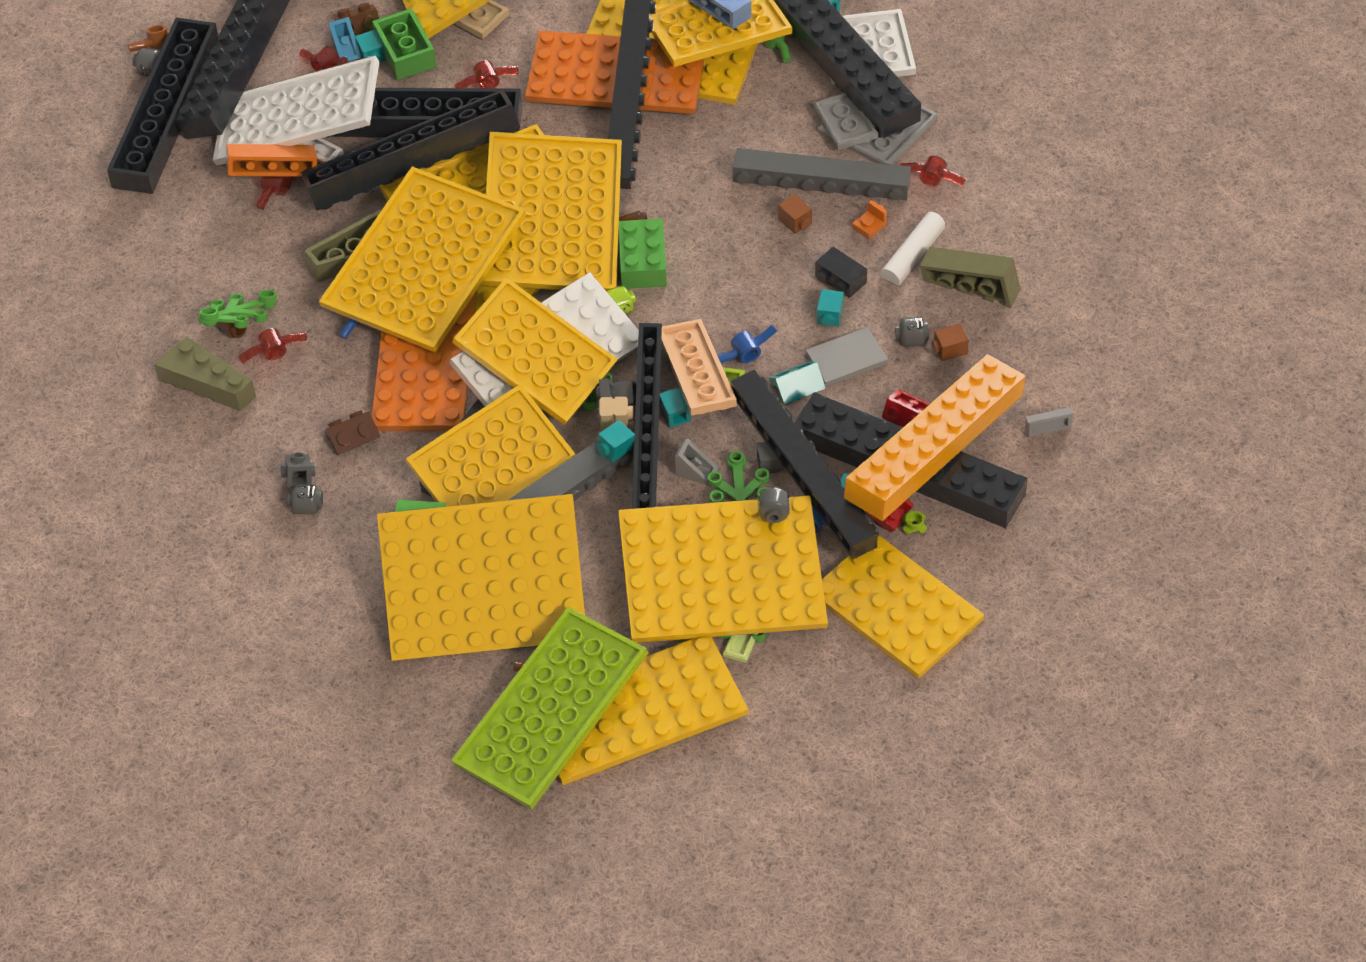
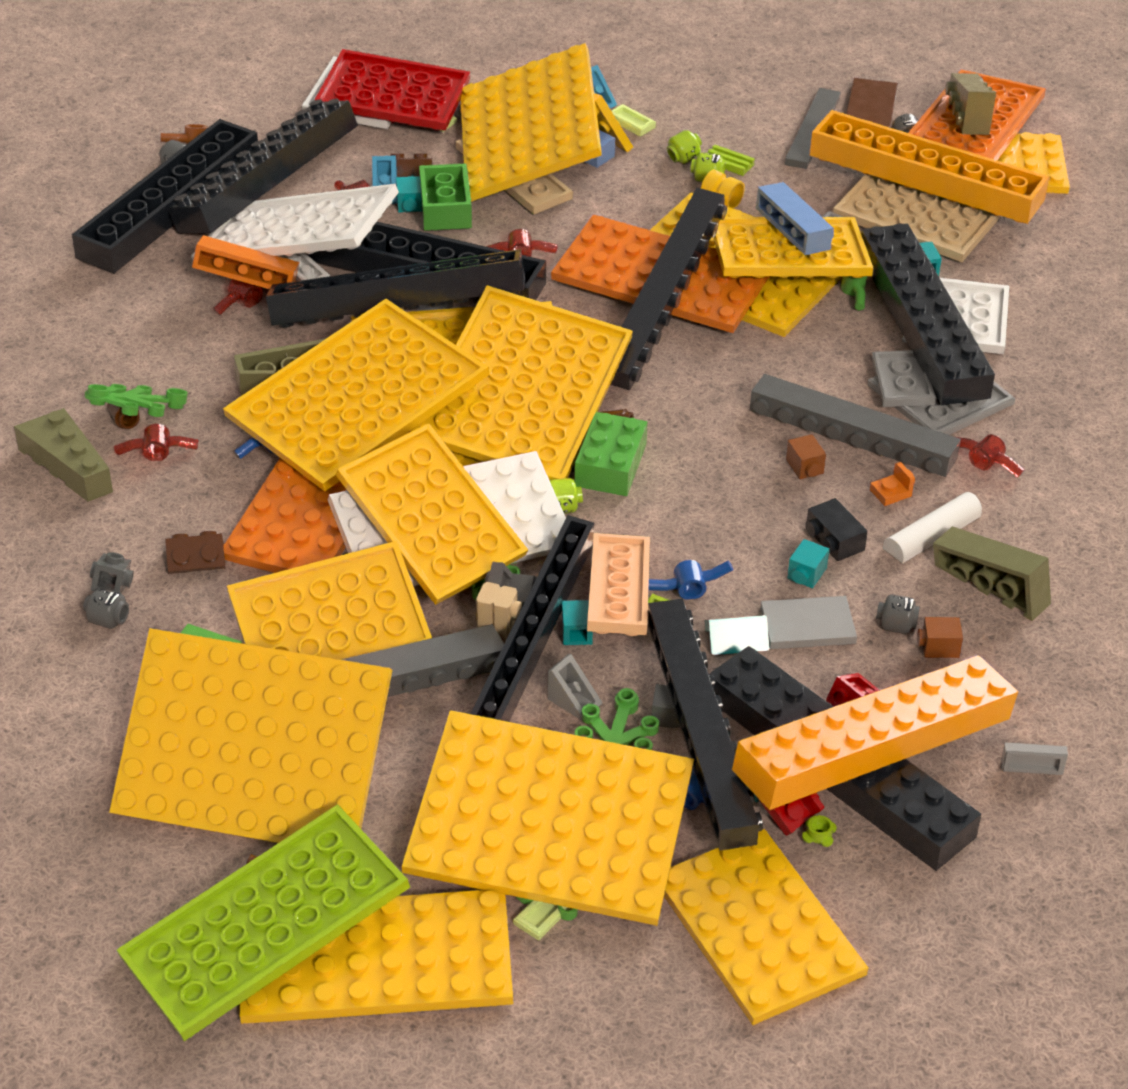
camera: 15 degrees right, 10 degrees down
(615, 441) = (482, 635): teal brick -> none
(774, 505) = (640, 754): dark grey head -> none

